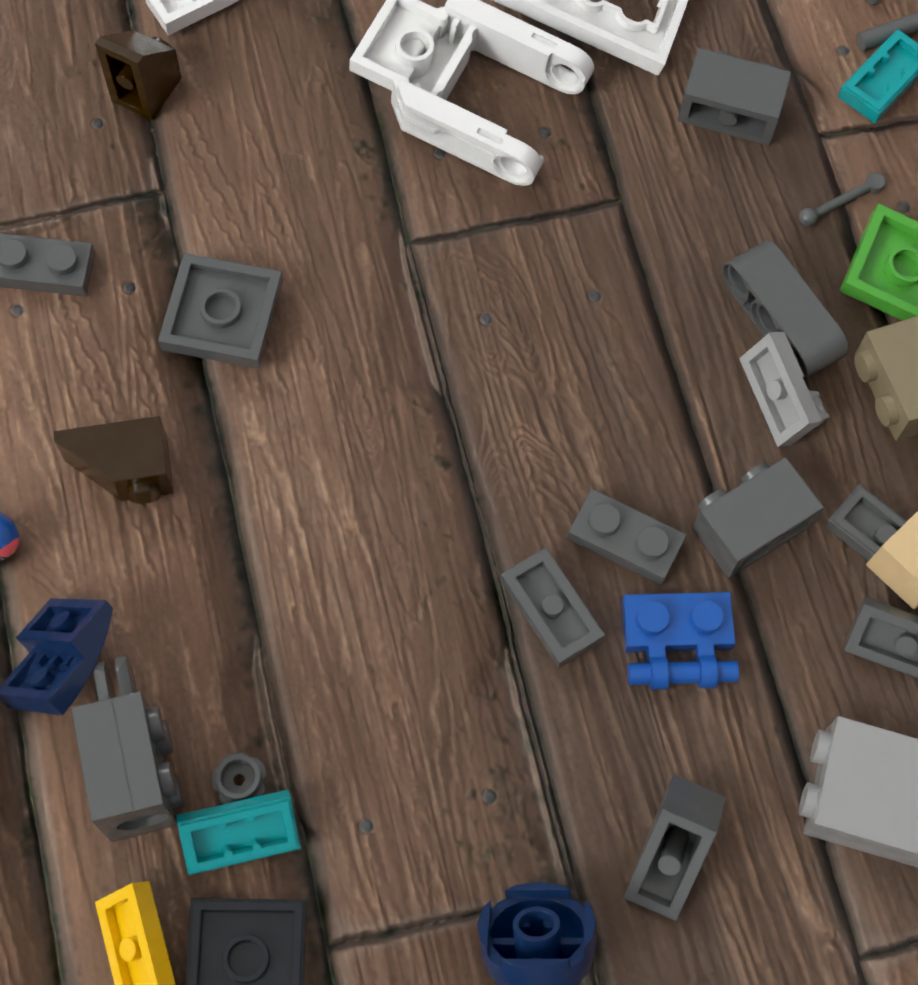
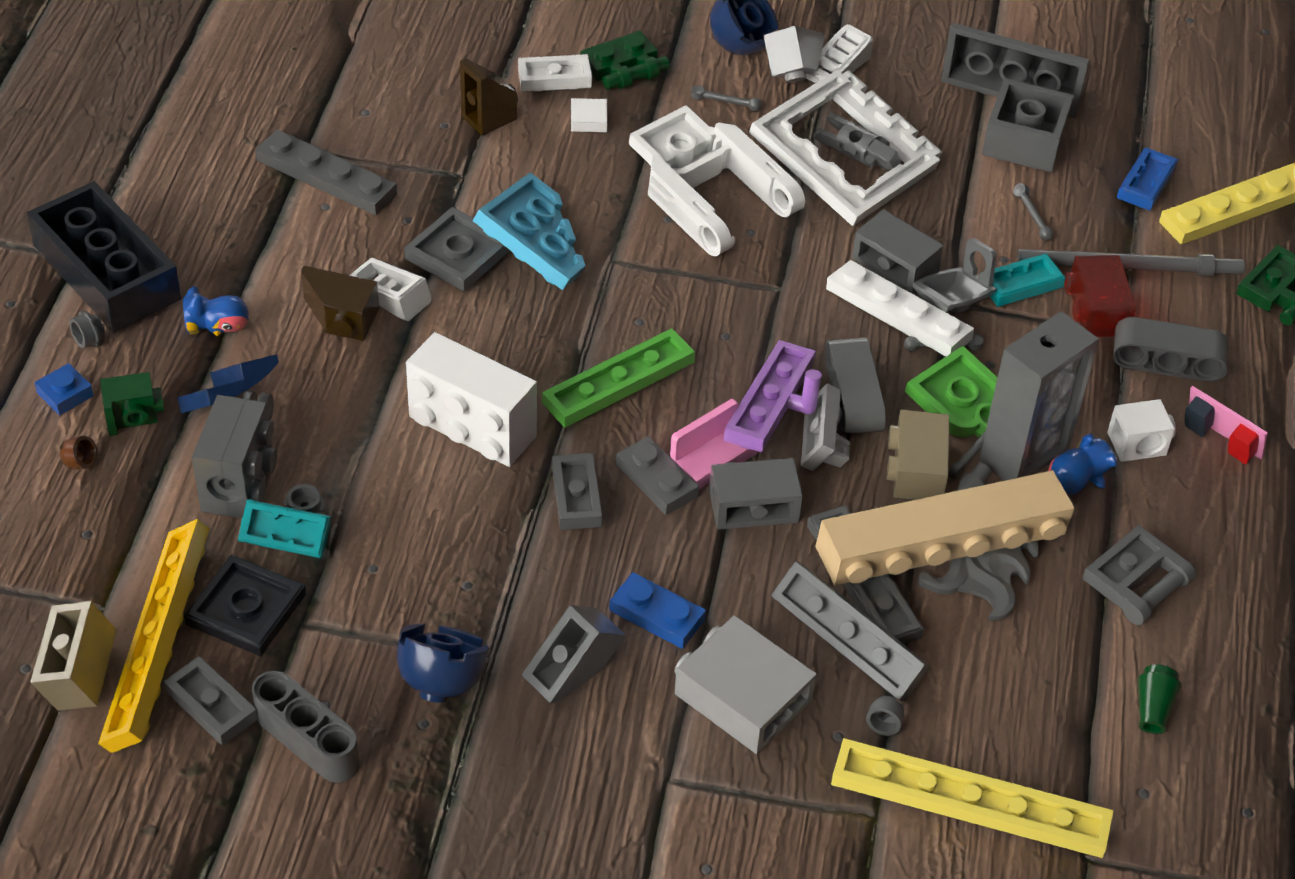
camera: 25 degrees right, 20 degrees down
(197, 411) = (398, 290): none -> white slope
(269, 38) = (588, 115): none -> white tile
(300, 247) = (532, 227): none -> medium azure plate
(369, 543) = (472, 399): none -> white brick
(512, 419) = (618, 377): none -> bright green plate
(675, 472) = (702, 444): none -> bright pink panel
(679, 624) = (658, 536): blue plate -> none
(709, 373) = (773, 394): none -> medium lavender plate
(728, 730) = (657, 610): none -> blue plate
(774, 175) = (899, 308): none -> white plate
(826, 121) = (960, 287): none -> dark grey piece

